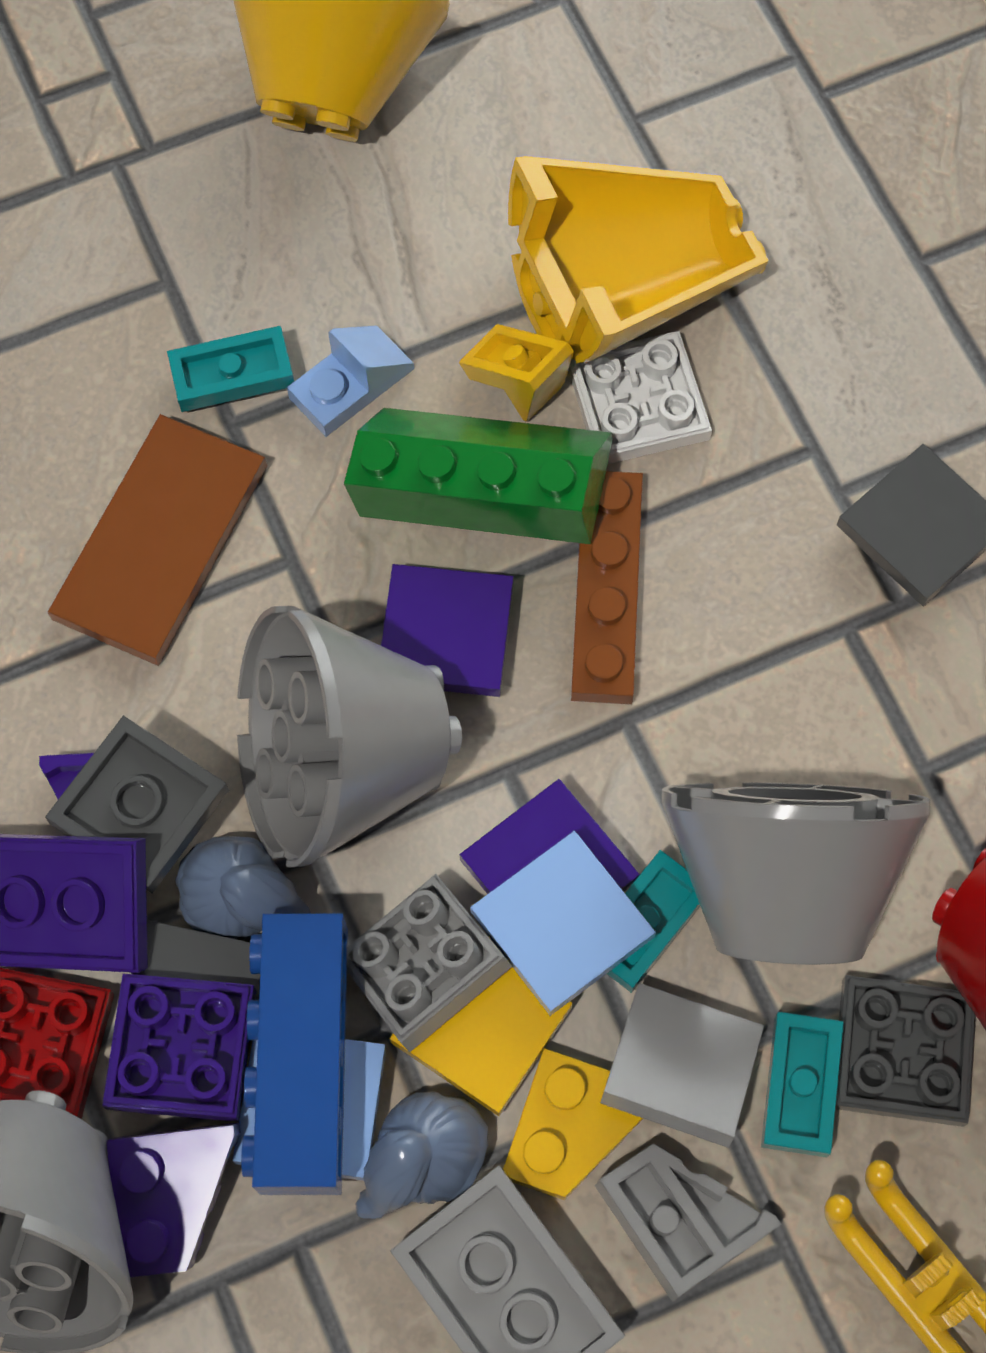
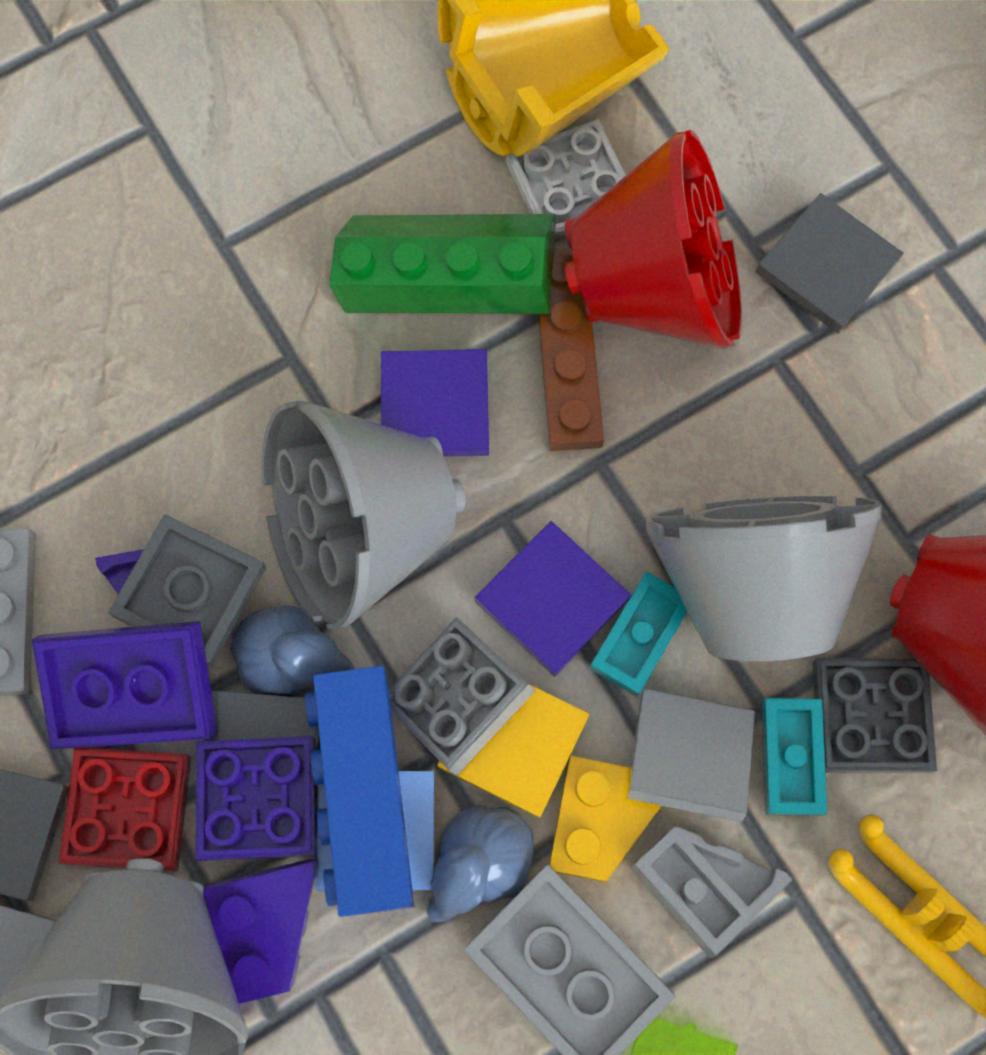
camera: 10 degrees left, 5 degrees up
(158, 539) = (172, 354): dark orange tile -> none
(230, 368) = (215, 196): teal plate -> none
(350, 378) = (320, 193): light blue slope -> none
(521, 363) = (467, 162): yellow slope -> none
(562, 922) = (573, 646): light blue tile -> none
(725, 487) = (655, 250): none -> red cone

